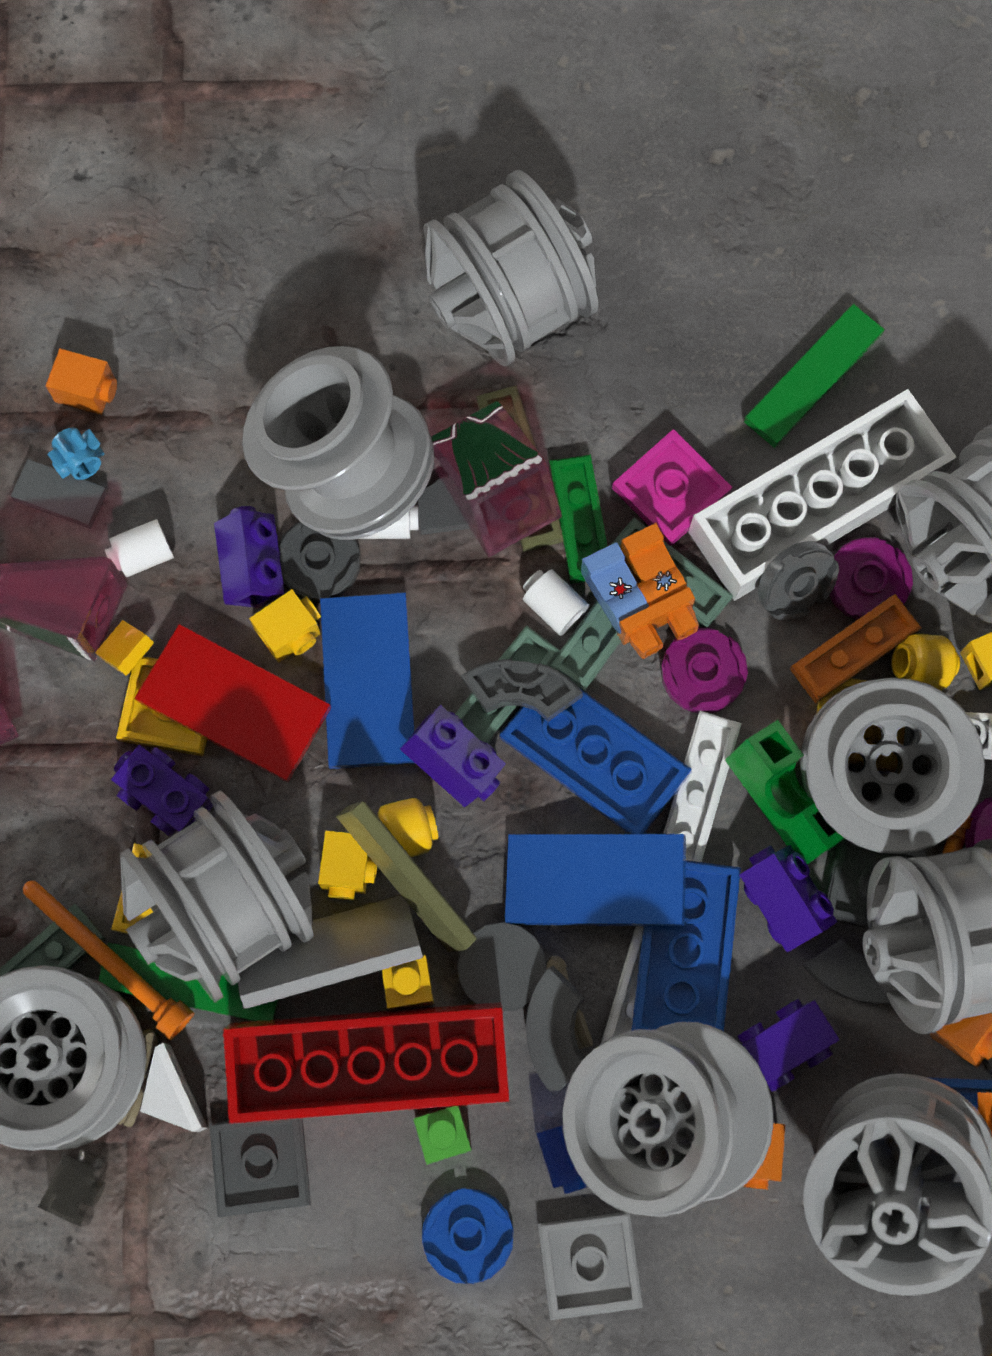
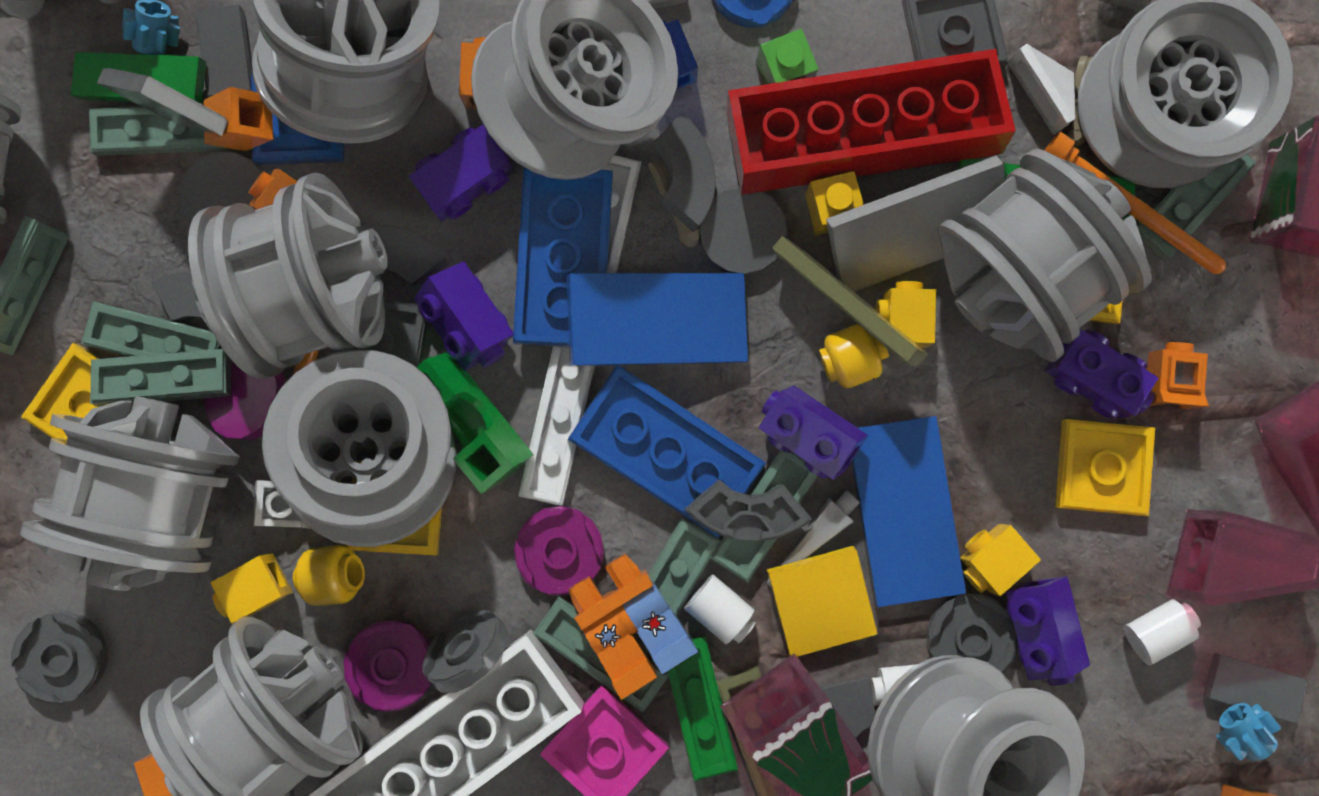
camera: 170 degrees right, 10 degrees up
(87, 782) = (1179, 375): none -> orange window
(124, 647) = (1161, 522): yellow tile -> none
(233, 703) = (1043, 471): red tile -> none
(443, 674) = (828, 523): none -> light grey piece
(457, 602) = (822, 601): none -> yellow tile
(855, 648) = (402, 584): orange tile -> none

